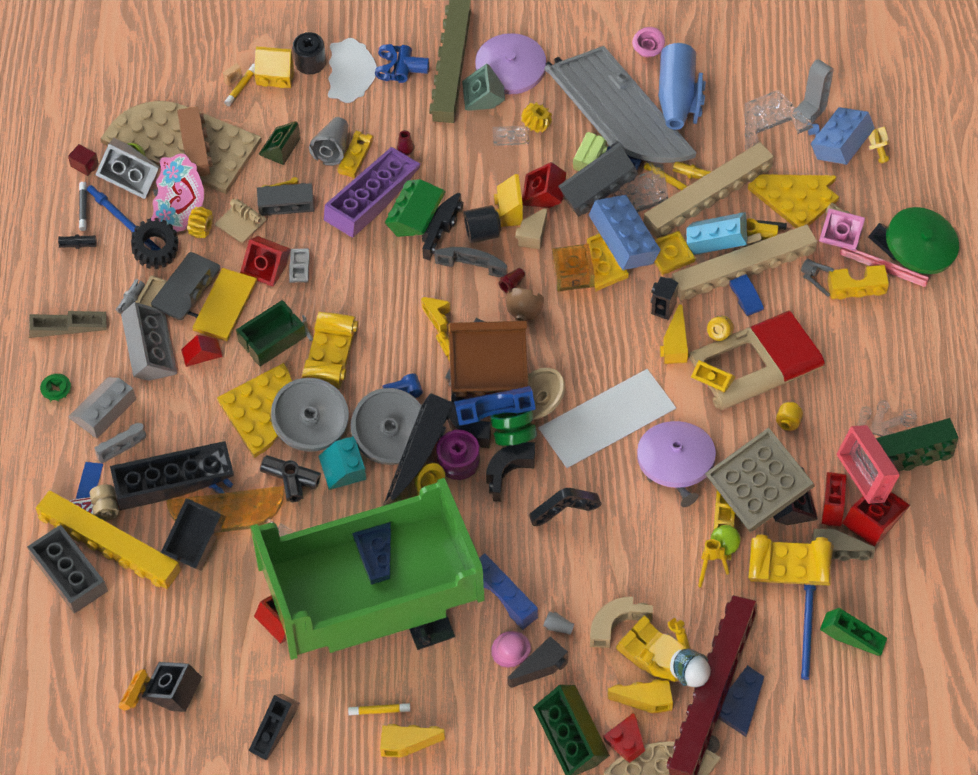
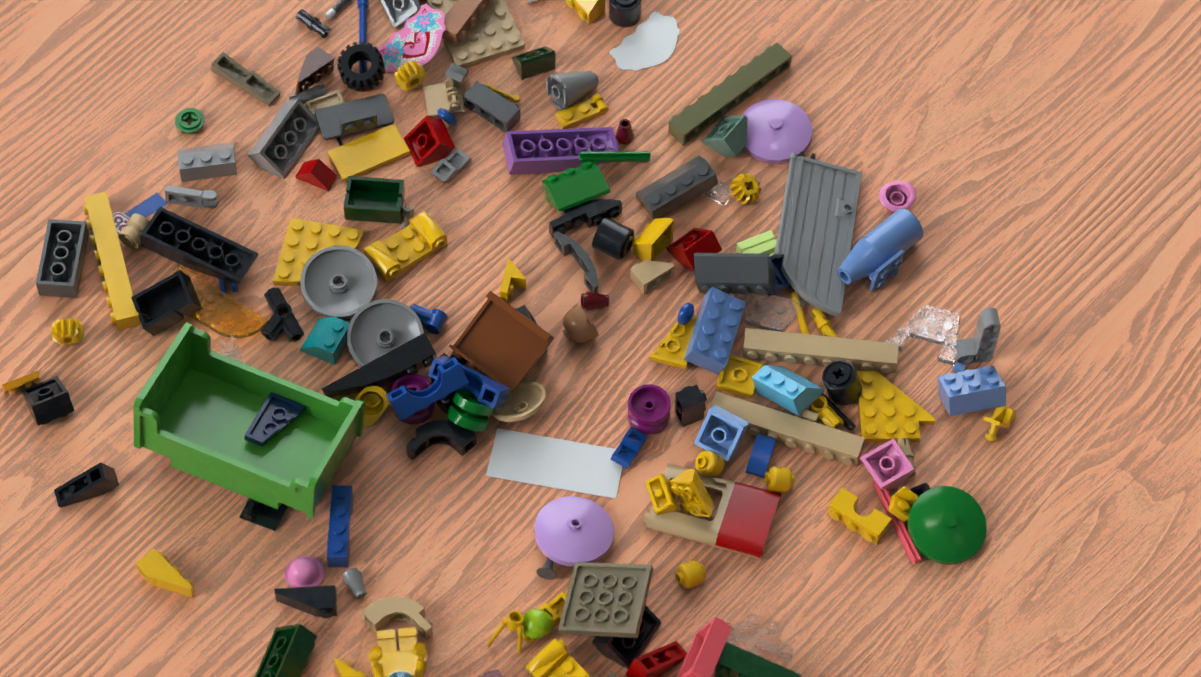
camera: 40 degrees right, 0 degrees up
(118, 273) = (315, 67): none -> slope
(132, 620) = (67, 331): none -> yellow gear
(233, 193) = (456, 72): none -> light grey slope
(259, 231) = (447, 116): none -> blue piece
(392, 708) = (169, 536): yellow bar -> none
(402, 65) = (688, 67): blue connector -> none
(417, 166) = (614, 156): none -> green axle
(483, 413) = (449, 379): none -> blue arch
(486, 152) = (678, 187): none -> dark grey slope
(559, 501) = (449, 493): black beam -> none
(573, 267) = (646, 326): clear yellow brick -> none
(592, 236) = (685, 313): none -> blue piece
(637, 324) = (649, 409): none -> magenta wheel
(648, 364) = (629, 447): none -> blue slope
(675, 342) = (667, 444): yellow slope -> none
(709, 298) = (721, 432): none -> light blue slope
(737, 356) = (692, 494): none -> yellow slope
(754, 206) = (842, 382): none -> black piece
(778, 300) = (779, 479): none -> yellow head
(811, 269) = (835, 477): dark grey plant -> none
(876, 249) = (901, 503): none -> yellow bracket

